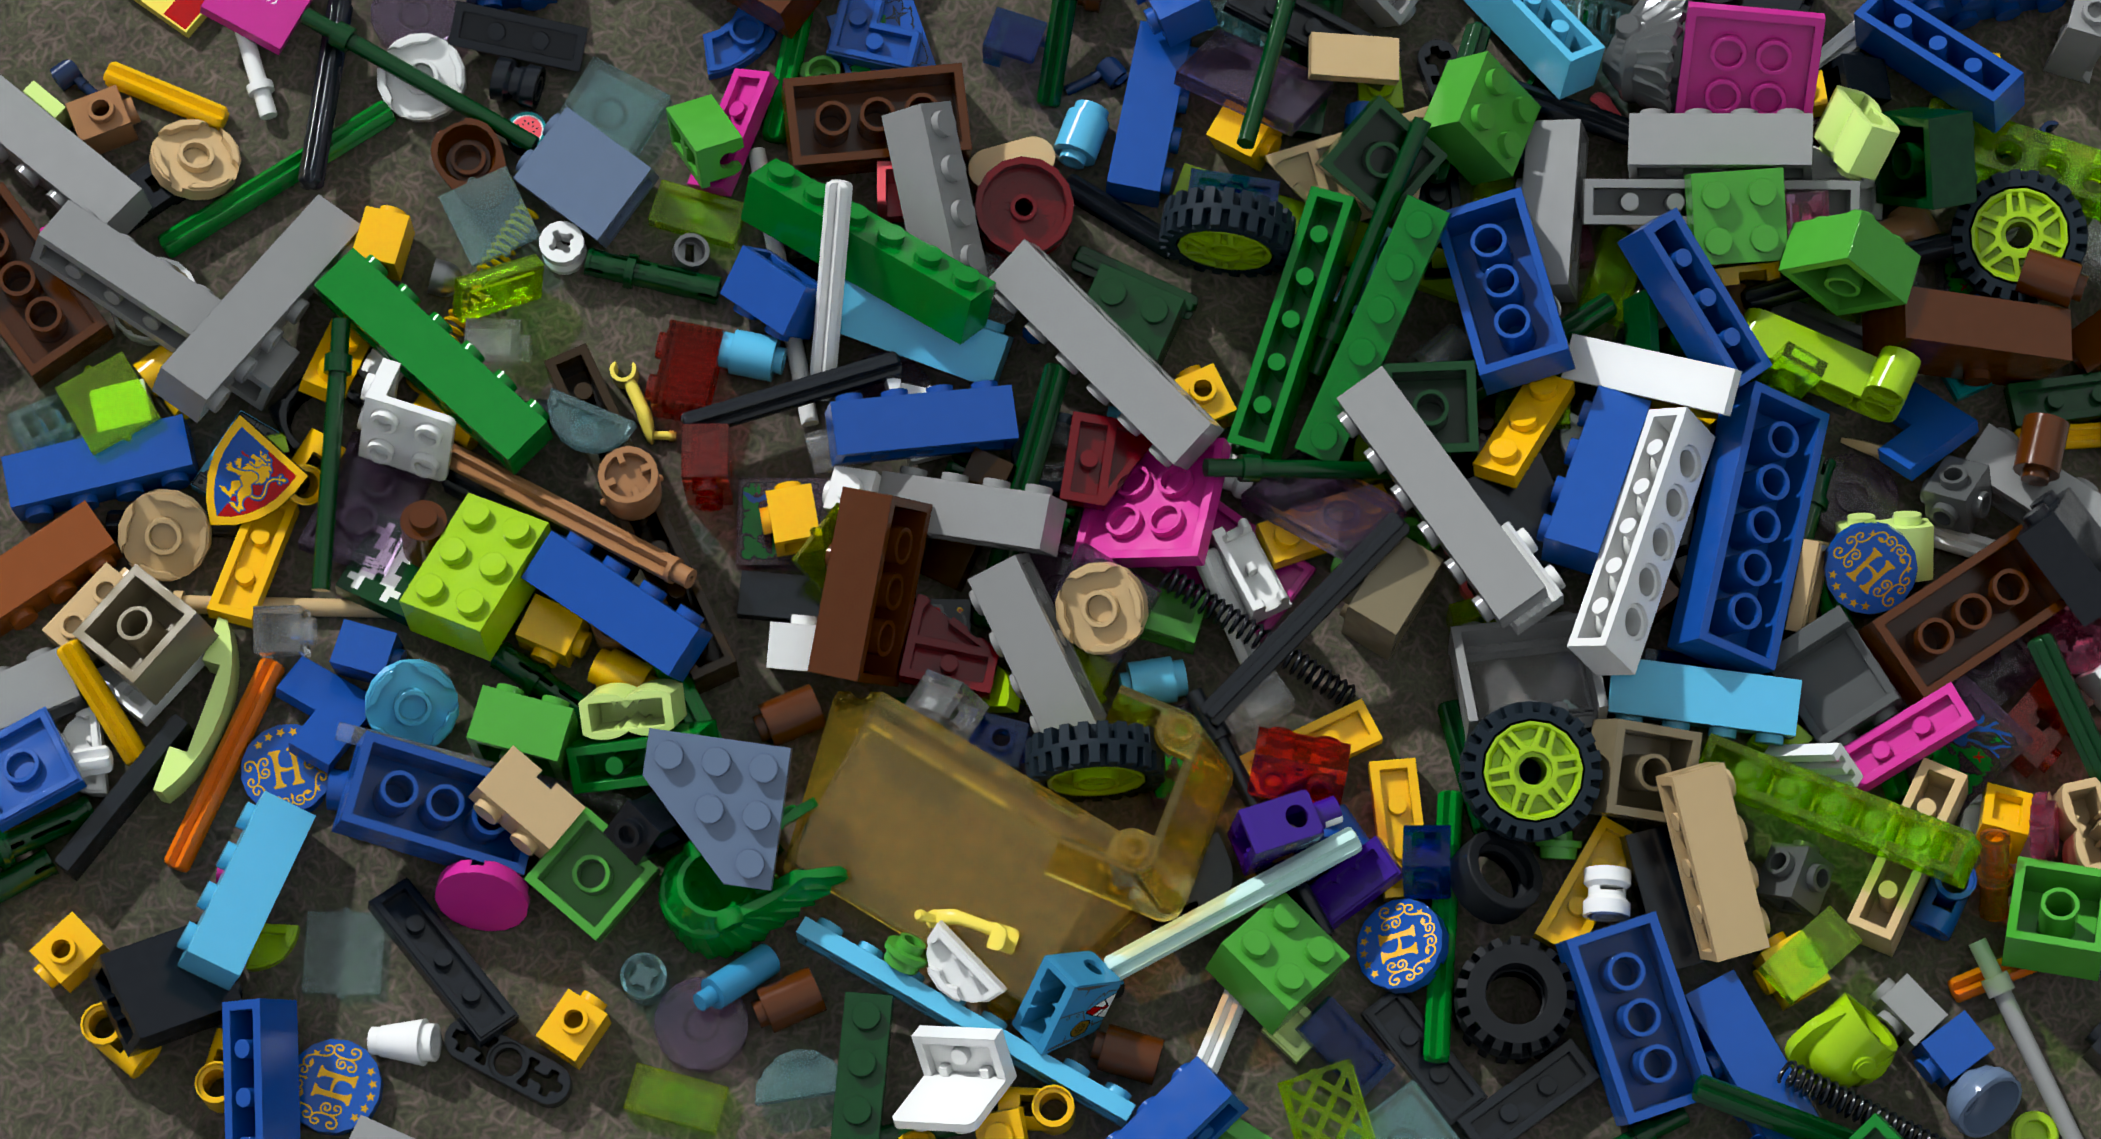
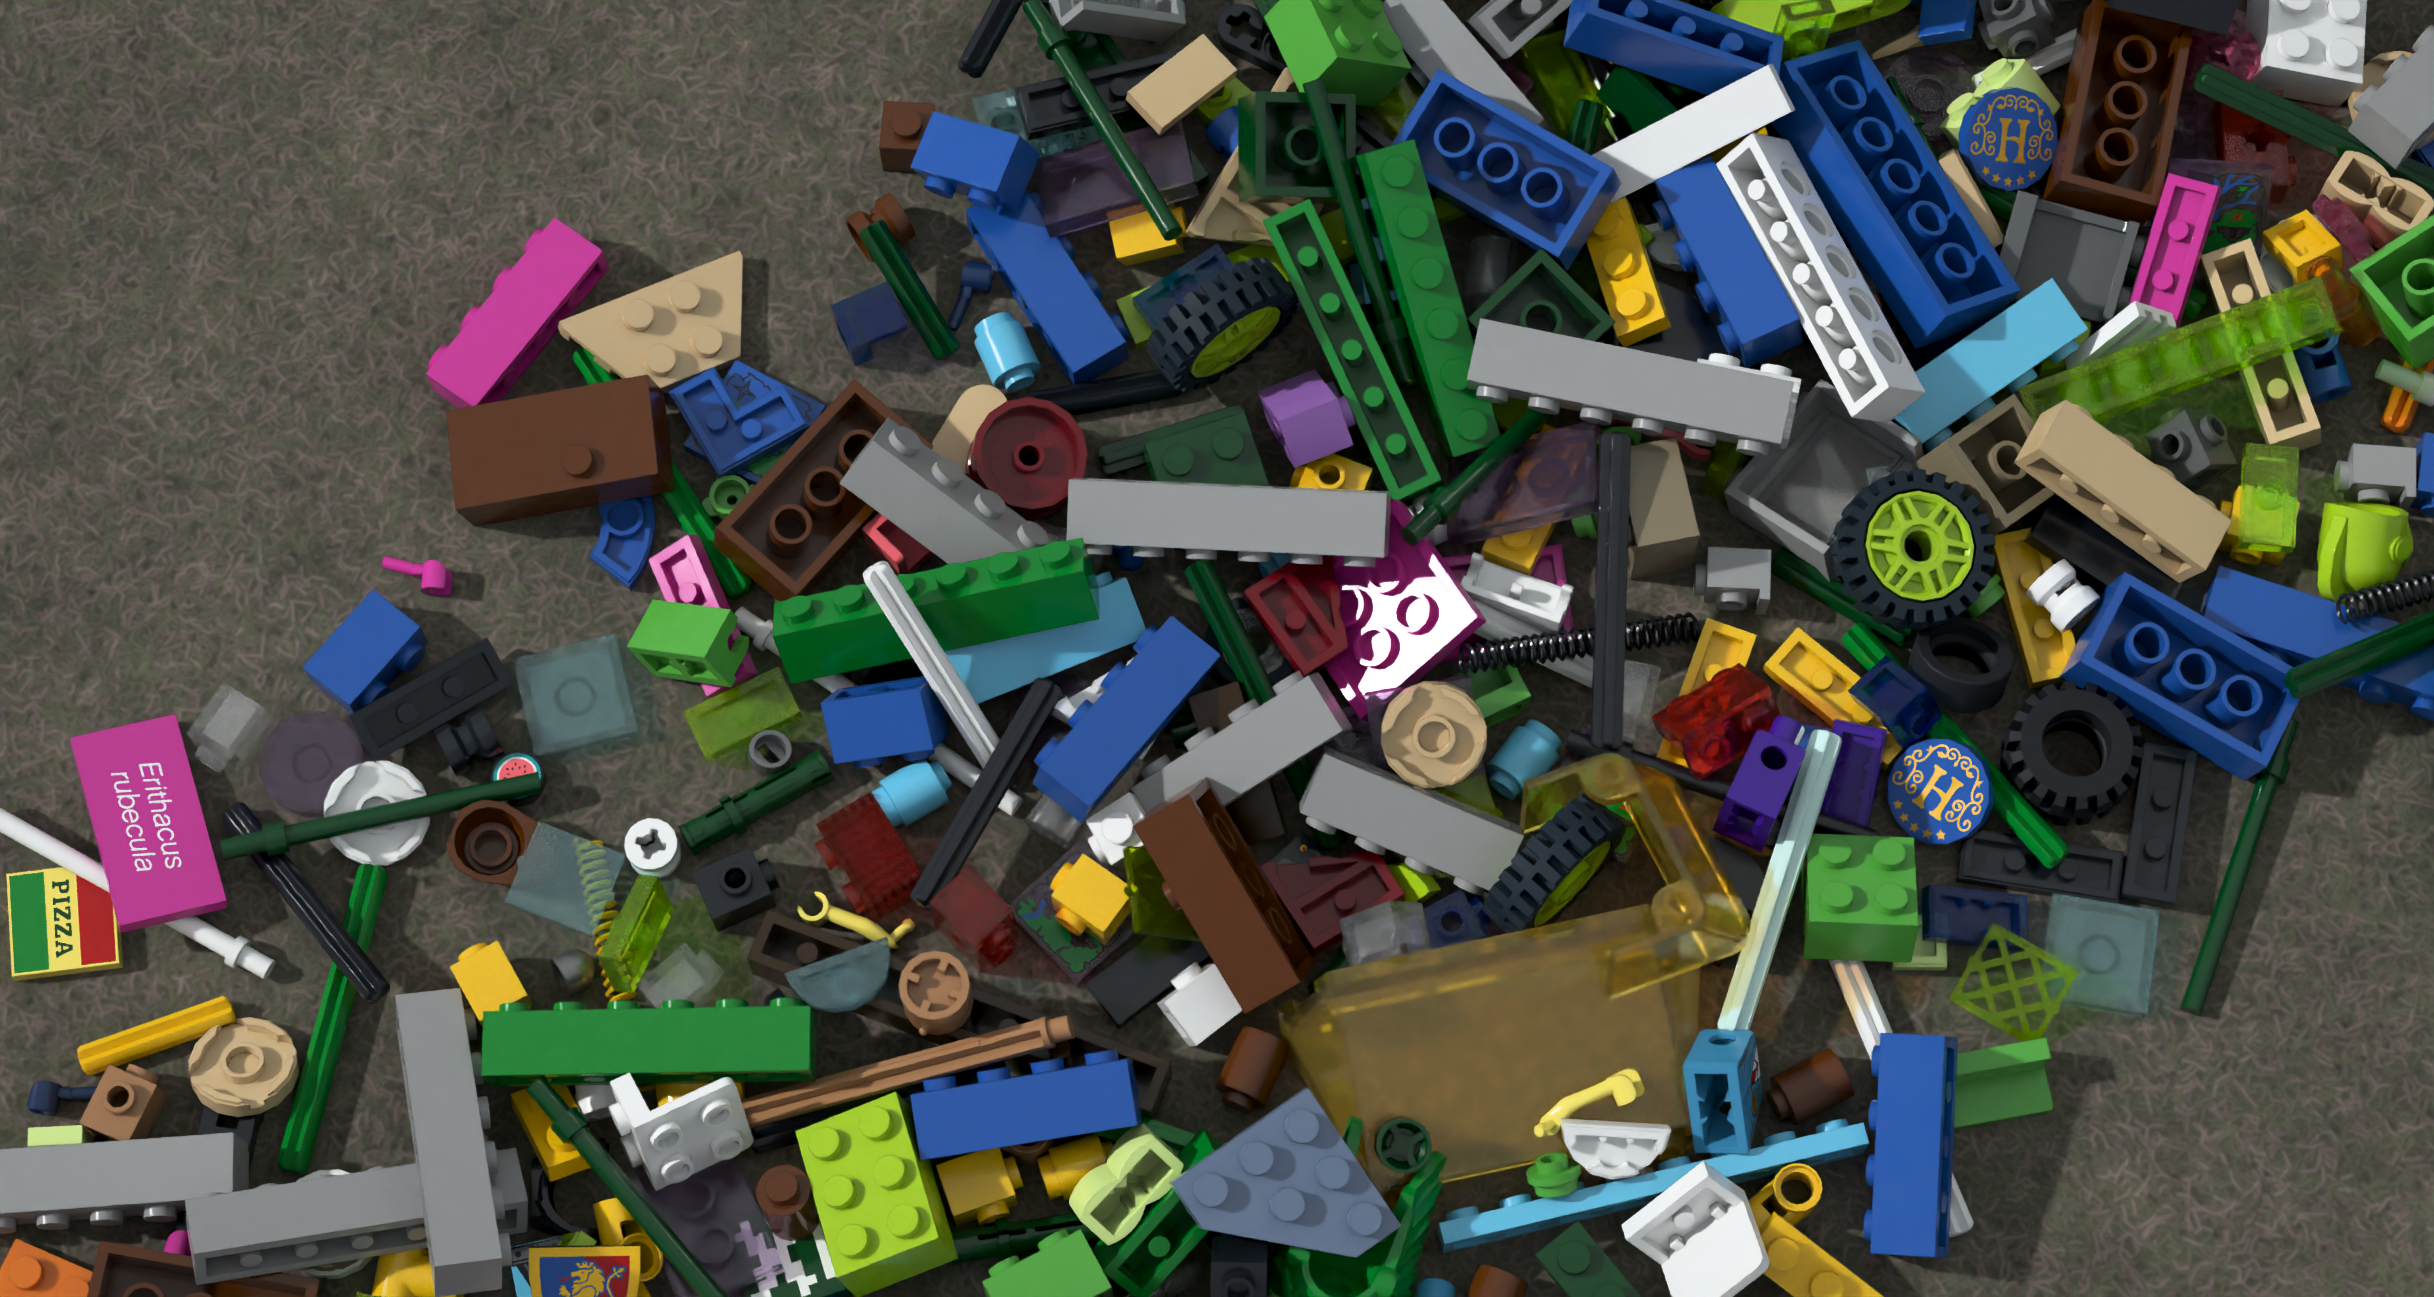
camera: 40 degrees left, 0 degrees up
(585, 176) = (613, 769): sand blue brick -> none
(587, 316) = (736, 888): none -> black brick
(815, 842) = (1409, 1147): none -> dark green wheel
(1224, 339) = (1307, 417): none -> medium lavender brick
(1405, 690) = (1734, 578): none -> light grey brick

